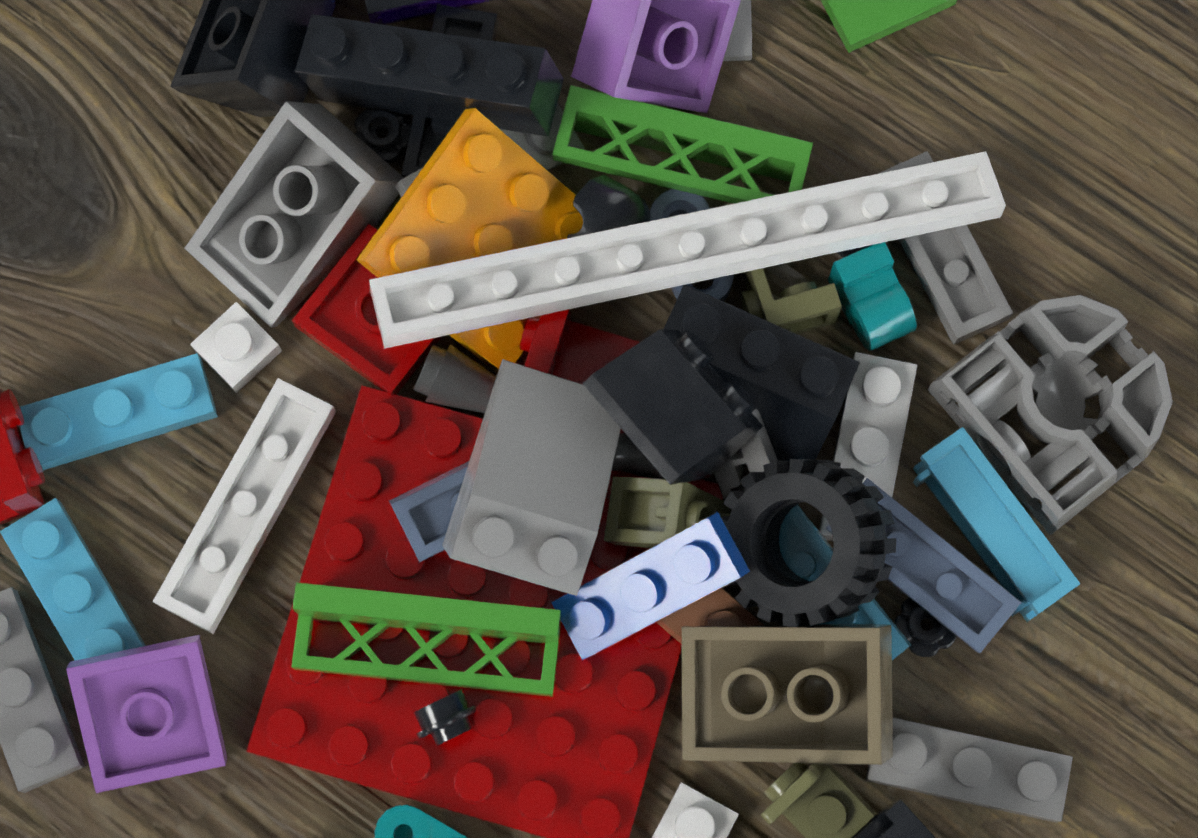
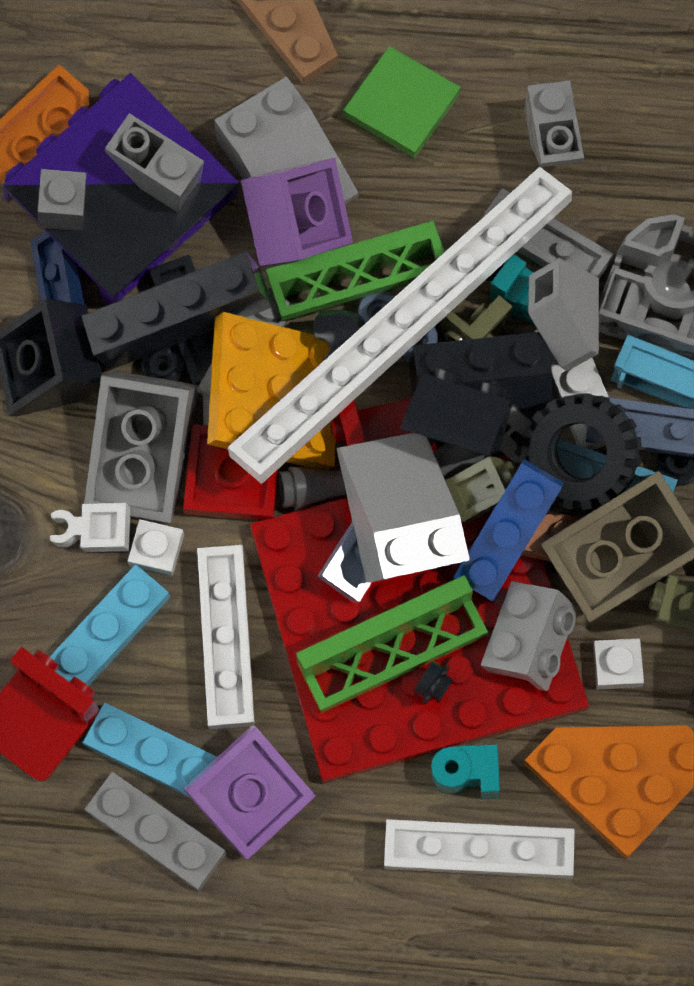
camera: 30 degrees left, 5 degrees down
(180, 284) = (100, 528): none -> white plate
(601, 731) = (530, 634): none -> light grey bracket
(900, 353) = (566, 311): none -> light grey slope
(1041, 108) = (553, 124): none -> light grey slope

